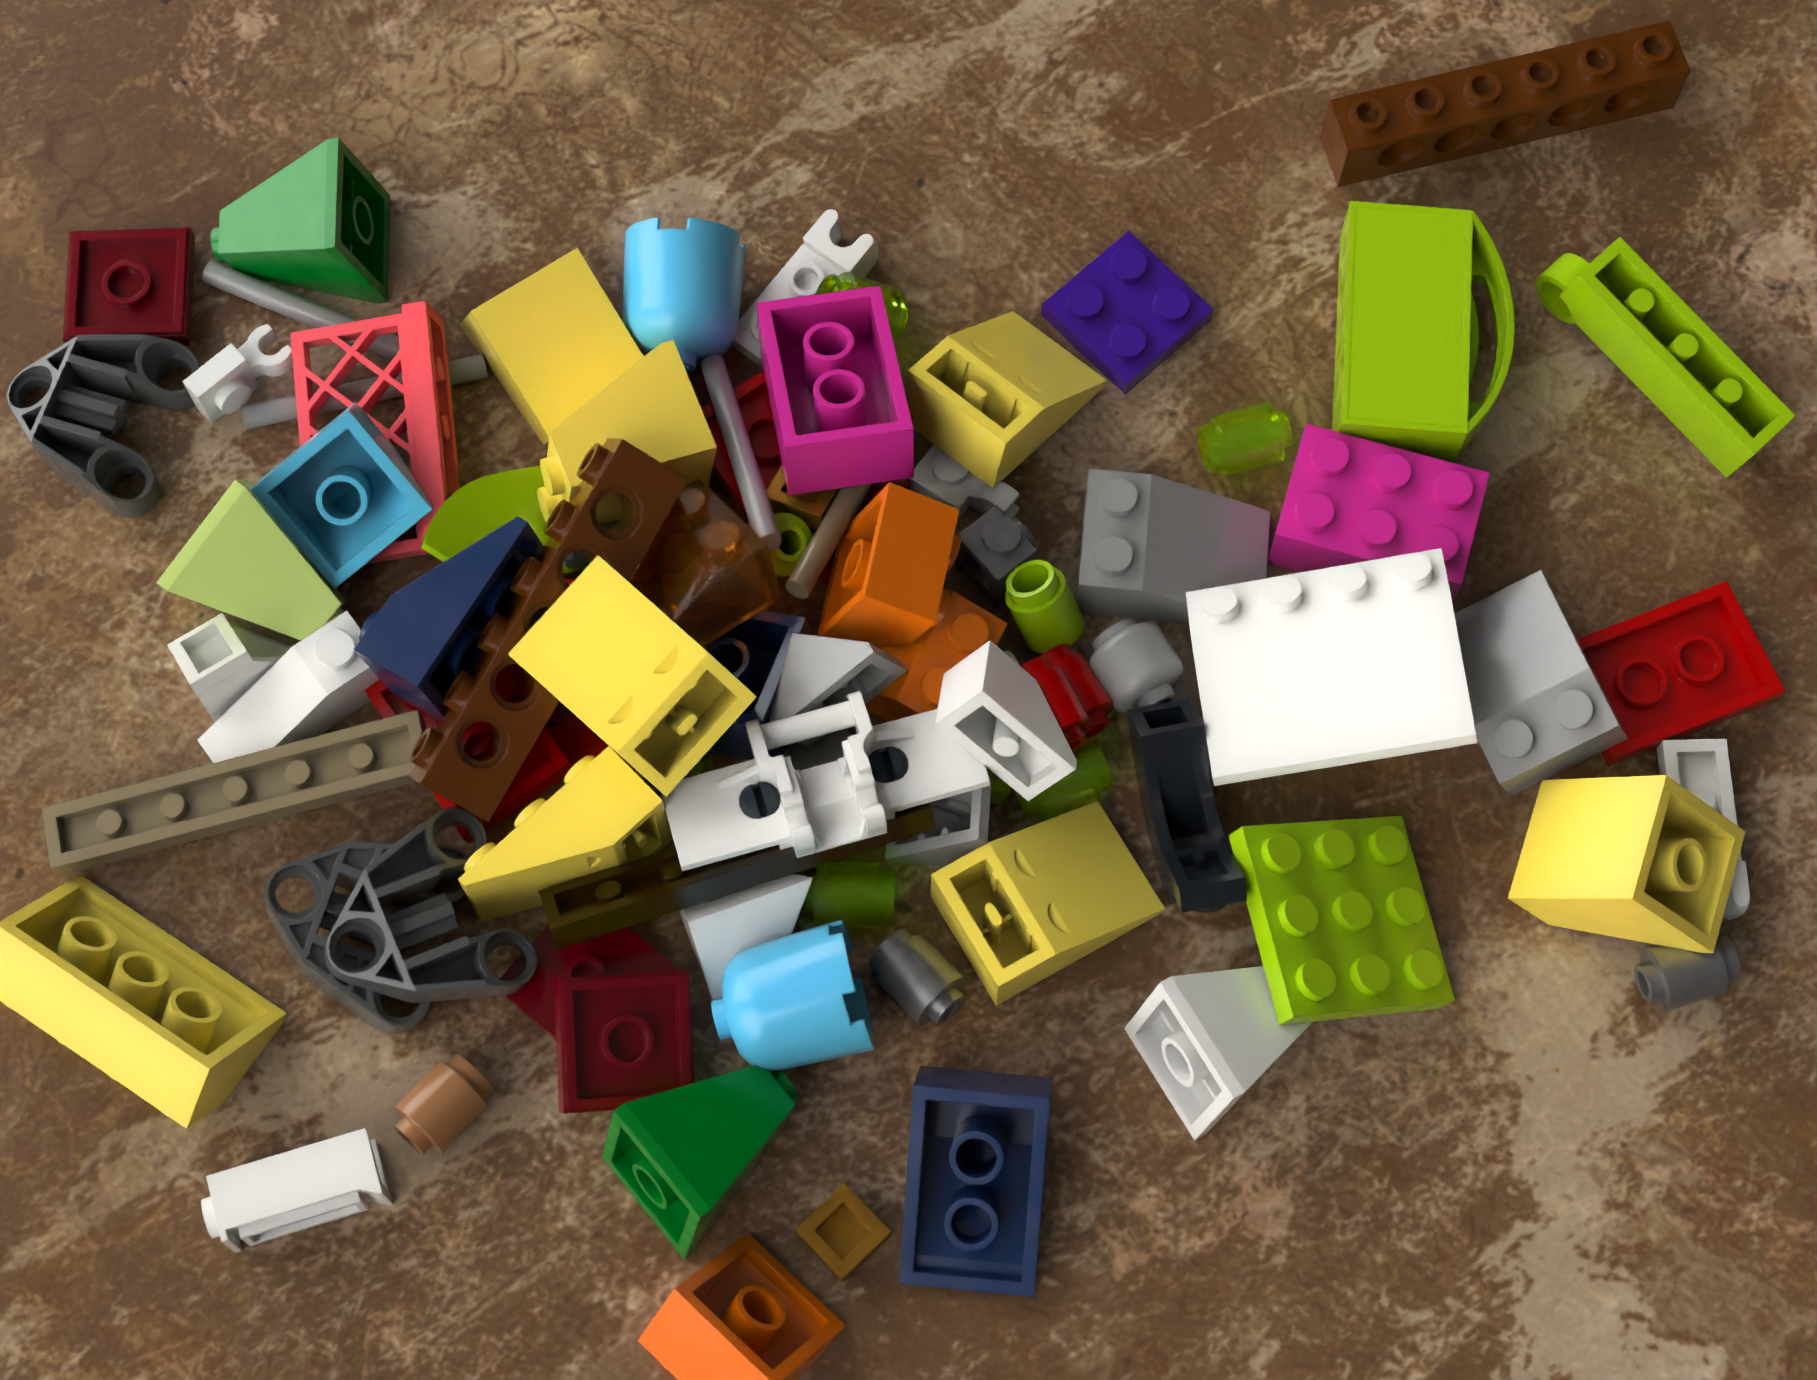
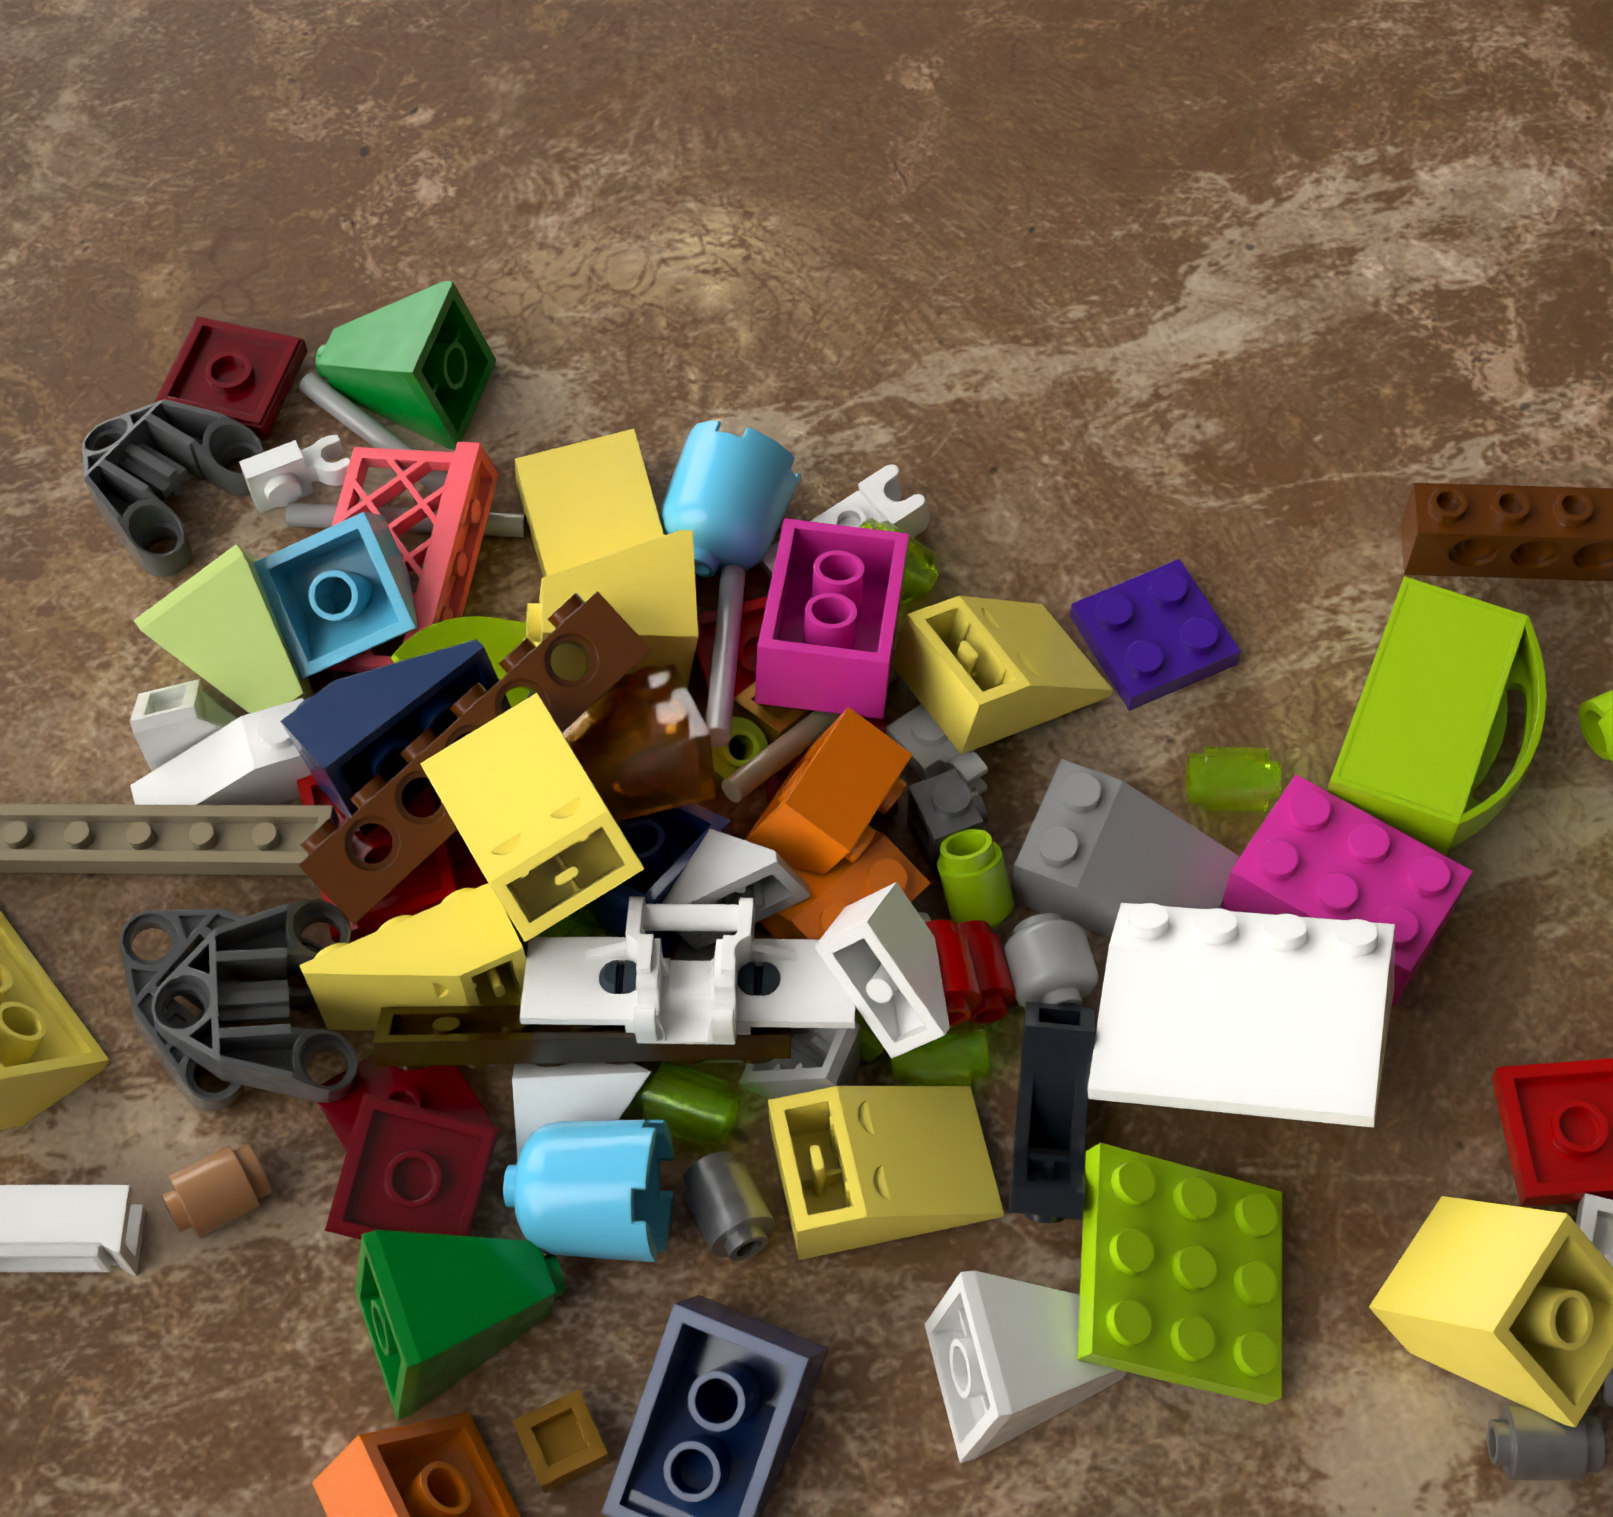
camera: 20 degrees right, 10 degrees down
(1531, 686) = (1456, 1100): light grey slope -> none

